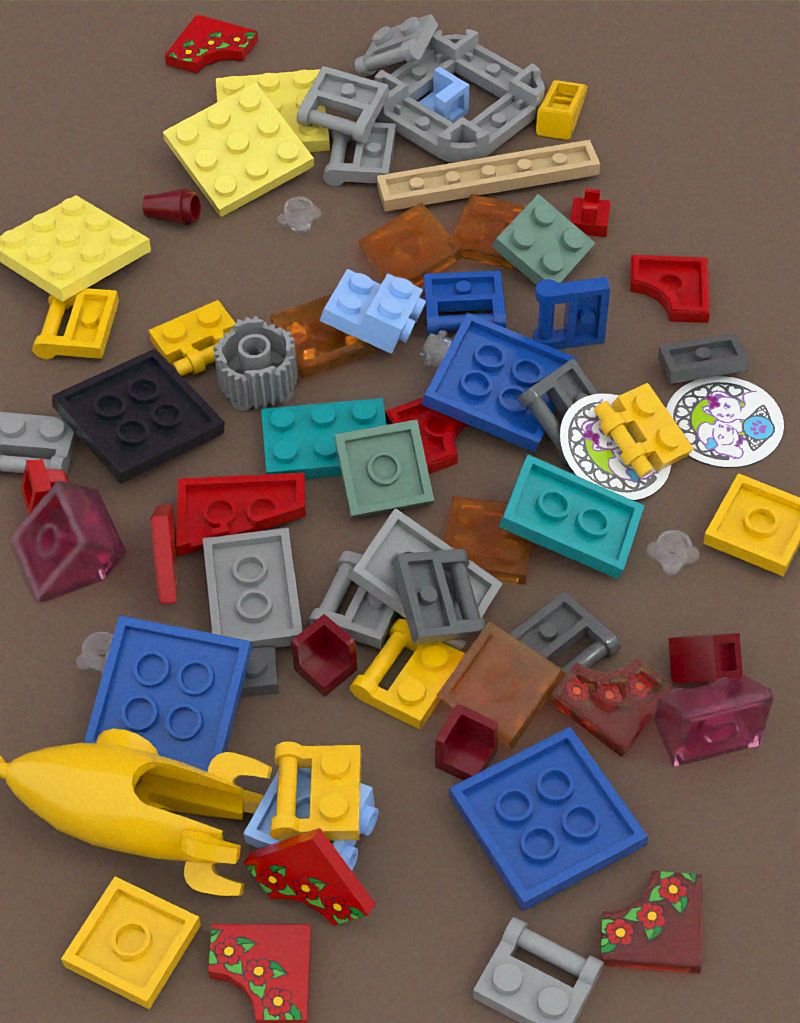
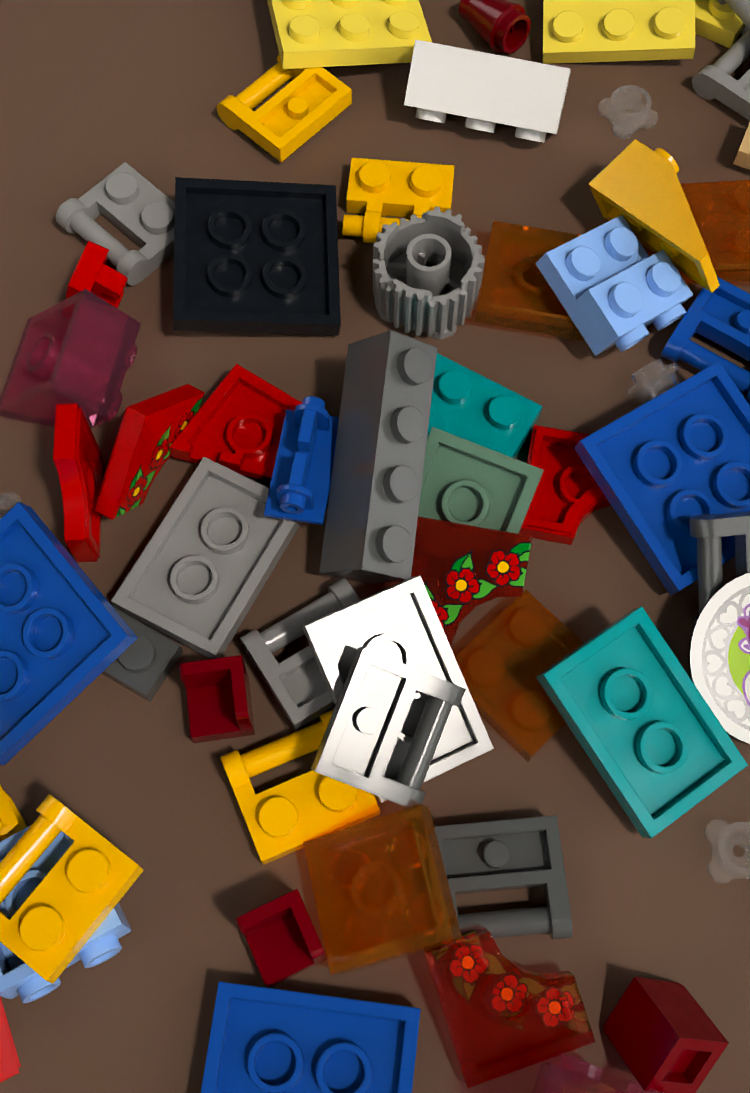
camera: 35 degrees right, 15 degrees up
(134, 584) = (80, 478): none -> red tile
(206, 245) = (486, 90): none -> white brick
(270, 500) = (303, 464): none -> blue hinge
(317, 470) = (379, 459): none -> dark grey brick
(367, 252) = (650, 198): none -> yellow slope
(414, 492) = (467, 567): none -> clear red tile

